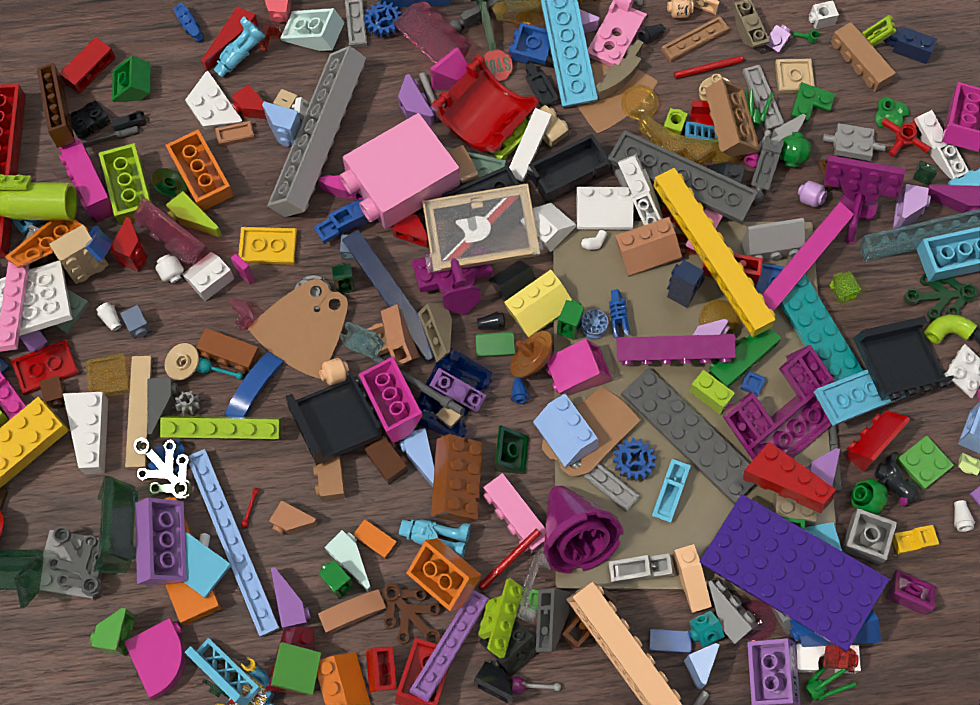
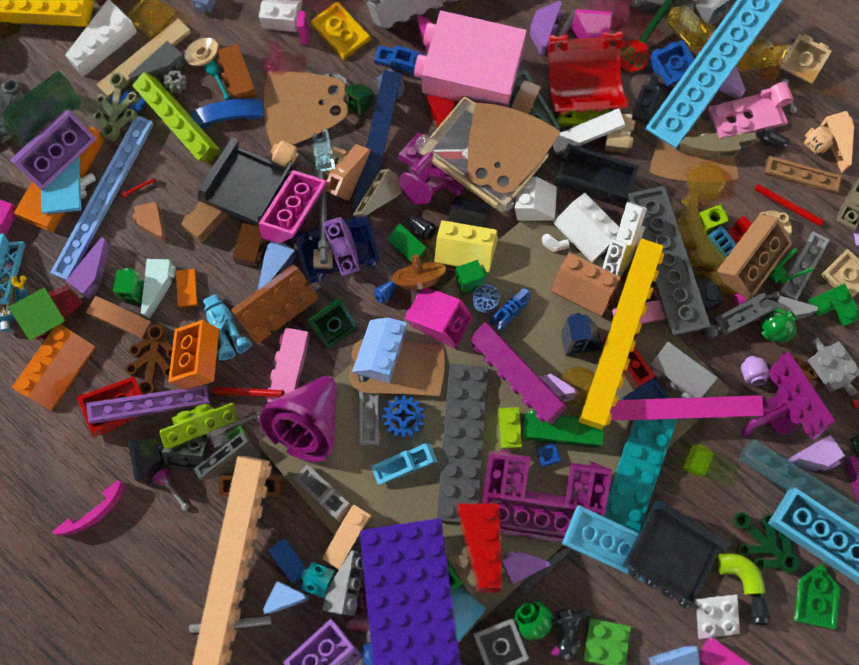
camera: 50 degrees right, 5 degrees up
(381, 669) = (92, 373): red brick -> none
(486, 200) = (507, 138): none -> medium nougat piece
(876, 438) = (588, 587): red slope -> none

